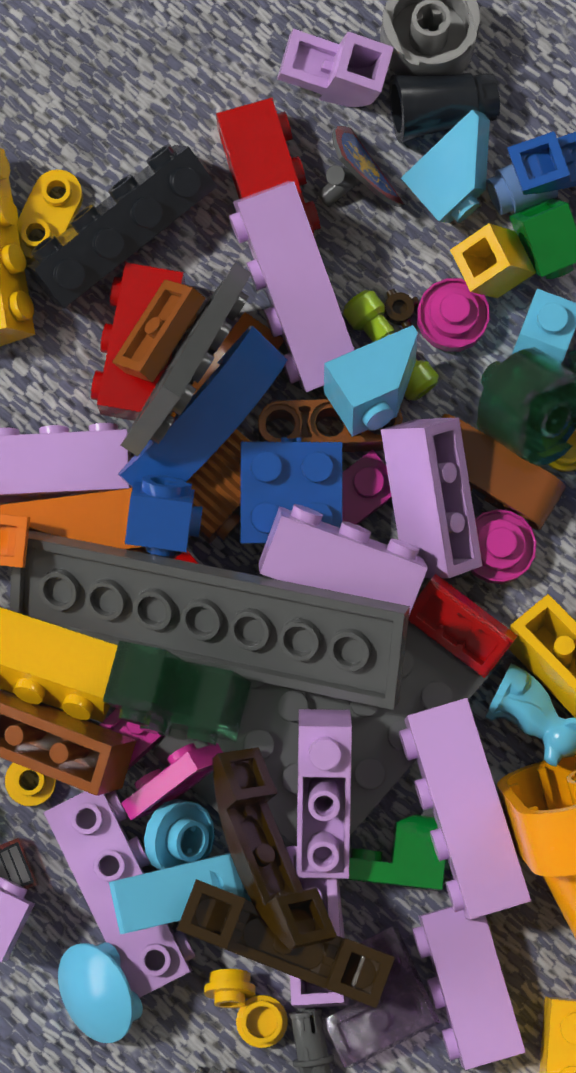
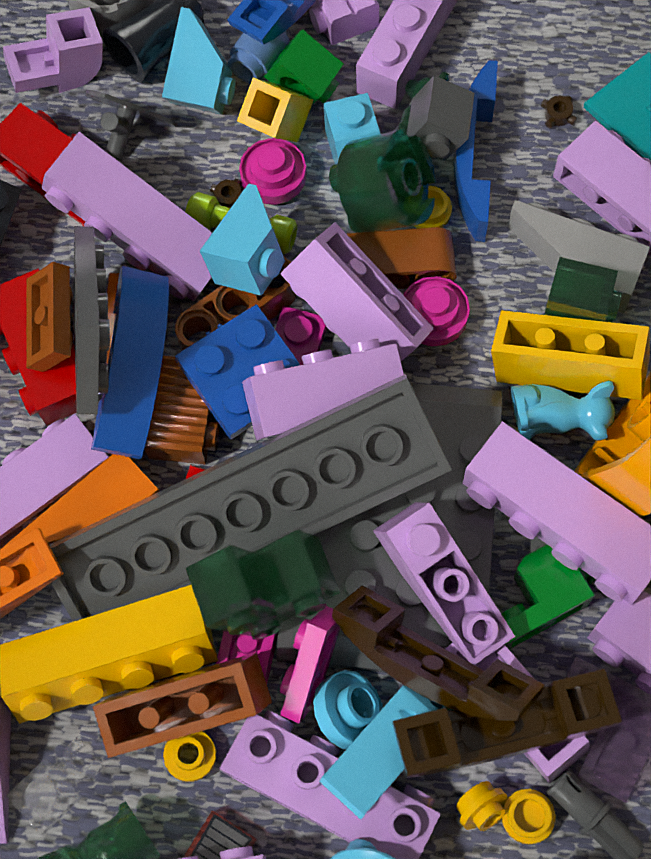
camera: 30 degrees left, 10 degrees down
(162, 515) = (151, 452): blue brick -> none
(460, 626) = (455, 379): red plate -> none

